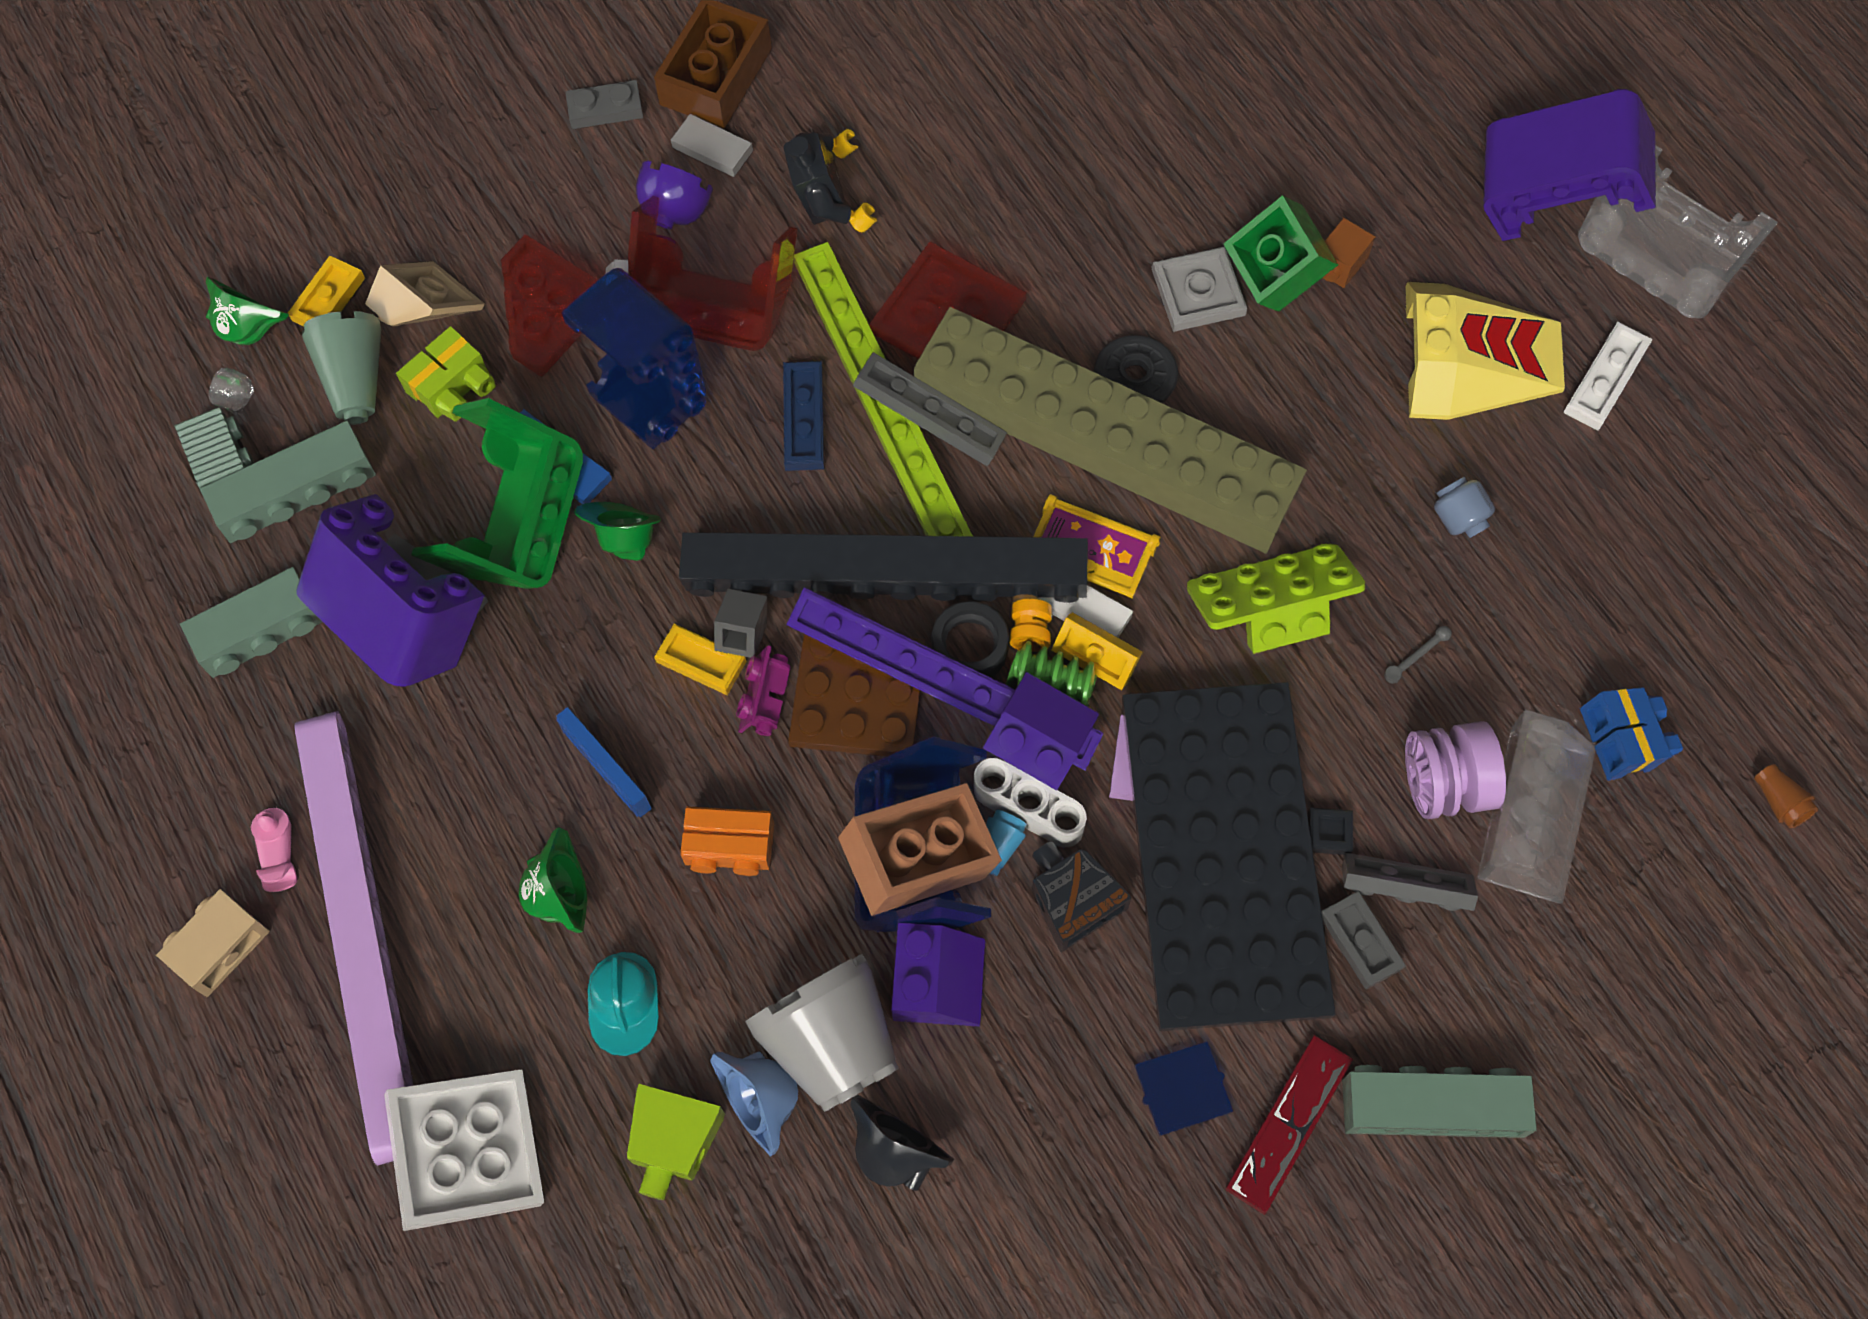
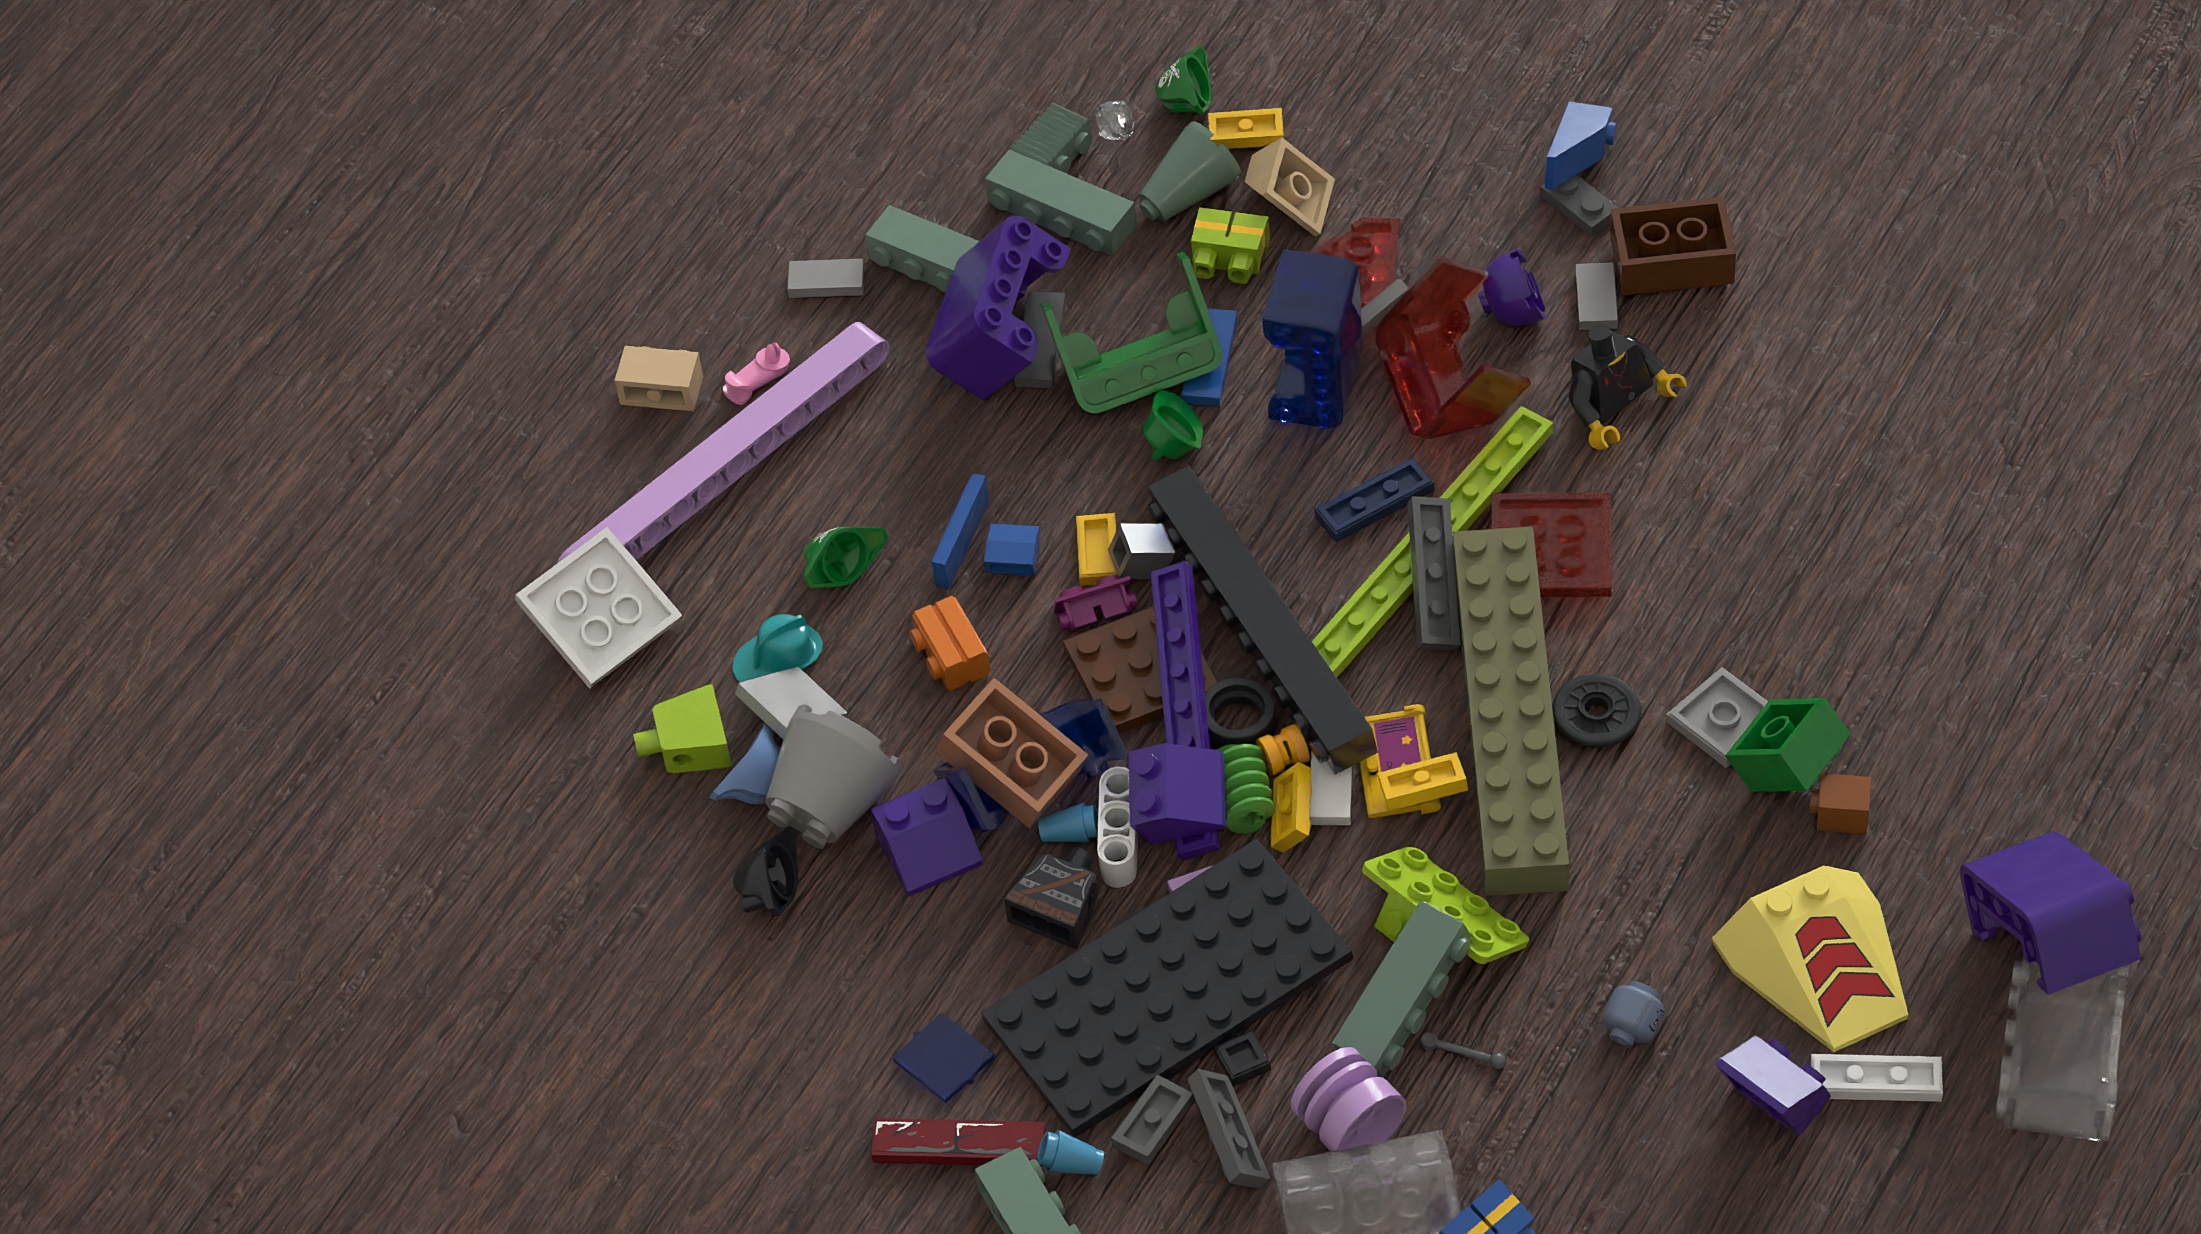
camera: 65 degrees right, 15 degrees down
(208, 727) = (826, 278): none -> light grey tile
(545, 62) = (1579, 141): none -> blue slope
(653, 729) = (1012, 549): none -> blue piece
(703, 1020) = (779, 695): none -> light grey tile
(1141, 534) = (1422, 781): none -> yellow plate
(1361, 663) = (1404, 987): none -> sand green brick
(1365, 1035) = (1068, 1155): none -> dark azure cone
(1601, 441) = (1776, 1083): none -> slope

